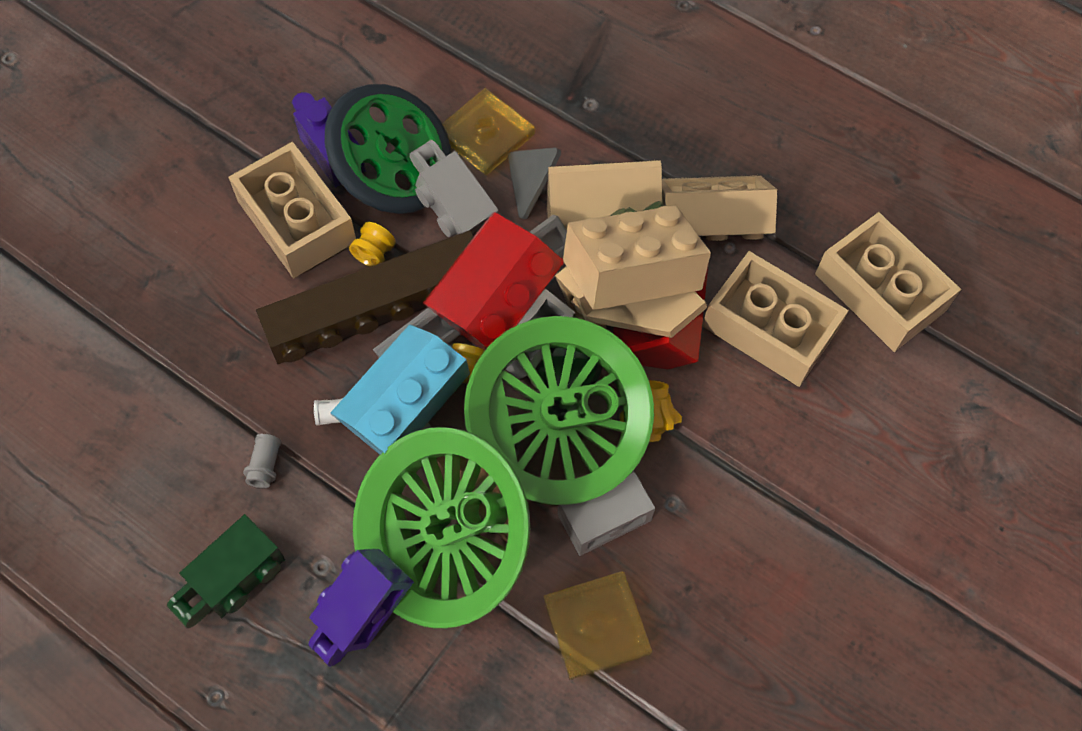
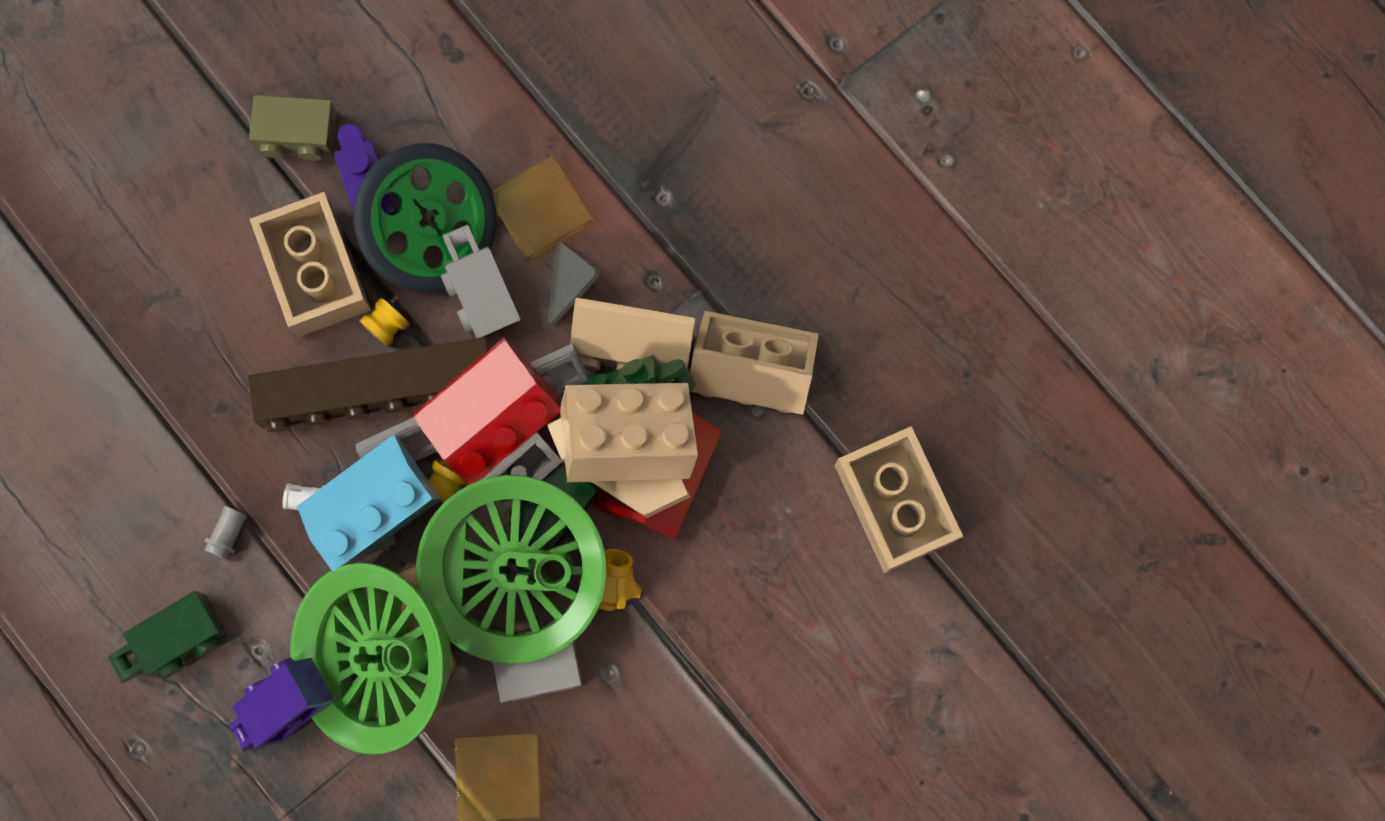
camera: 15 degrees right, 15 degrees up
(249, 110) = (293, 127): none -> olive brick
(774, 318) = (766, 512): tan brick -> none

